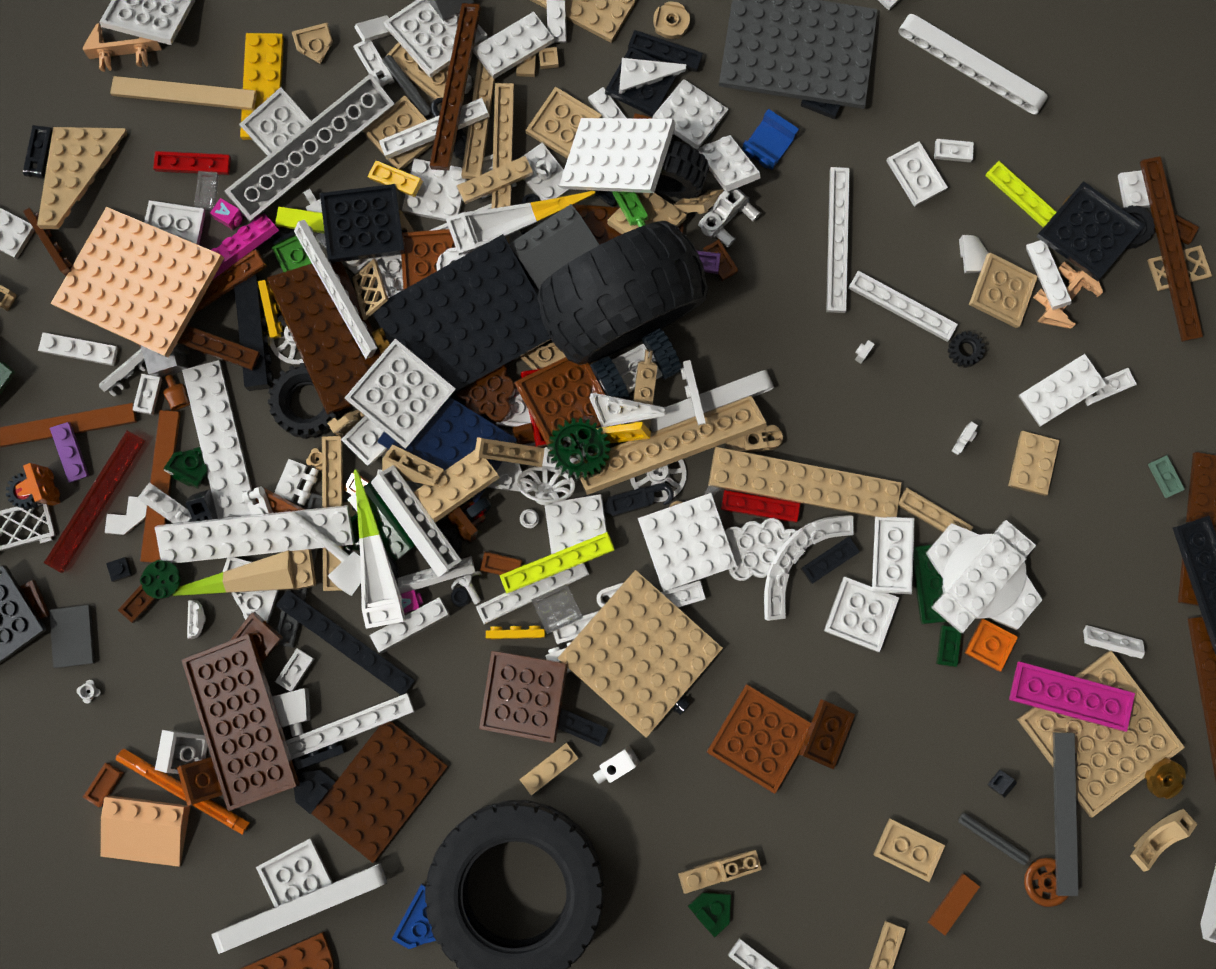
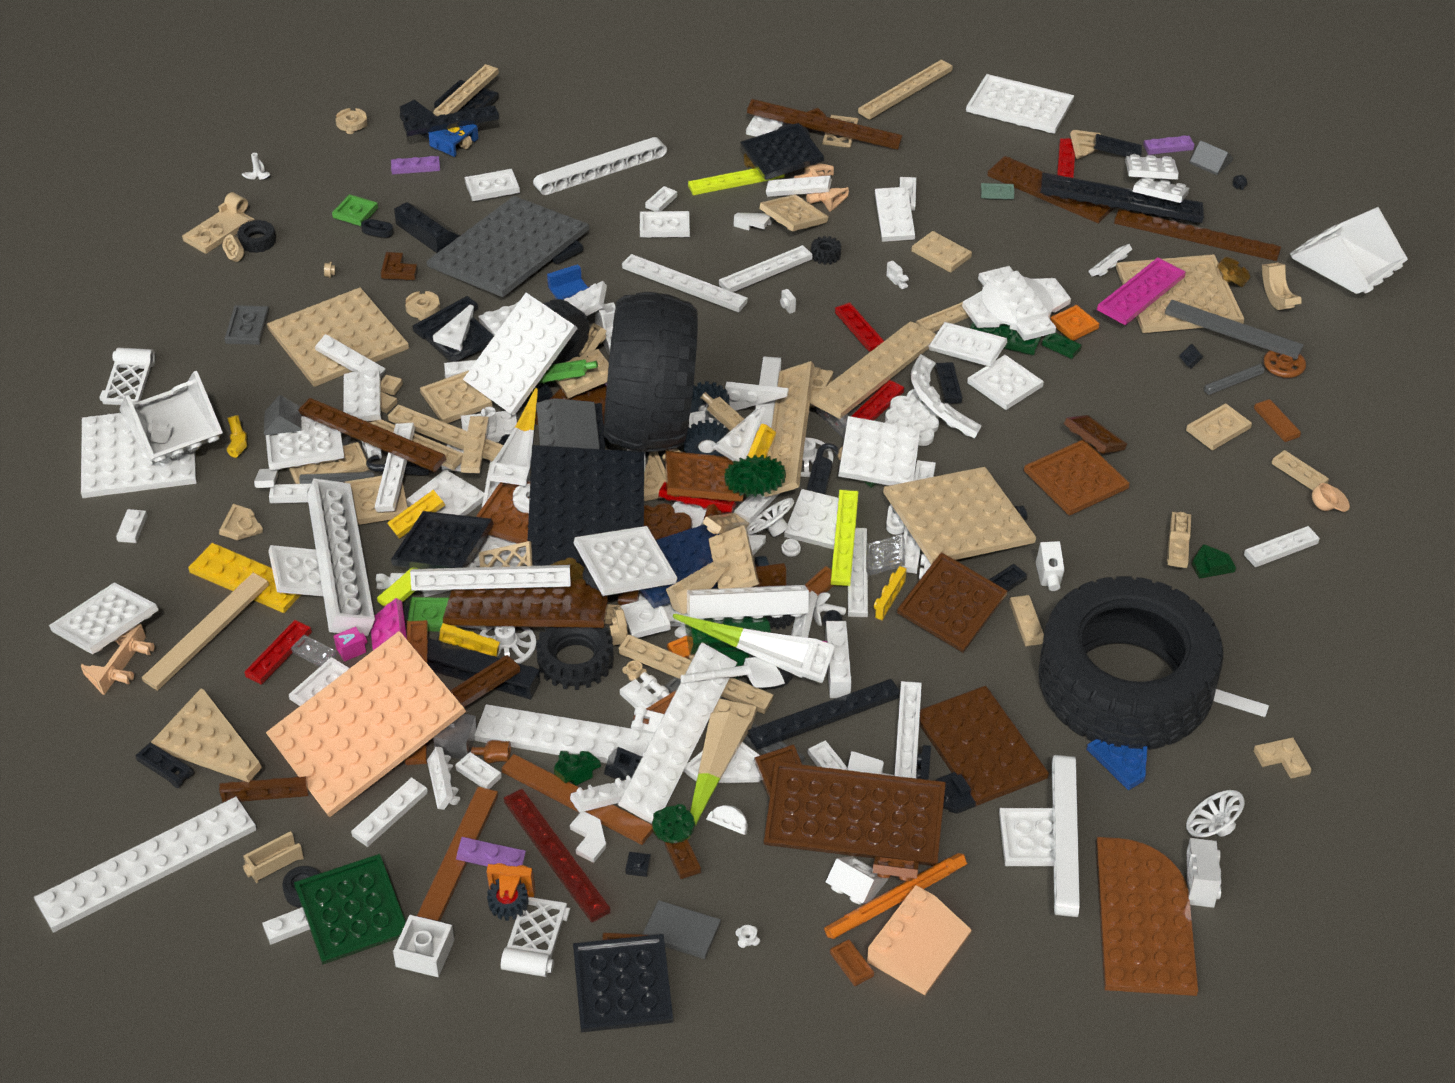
camera: 60 degrees left, 35 degrees down
(865, 438) = (858, 326): none -> red plate

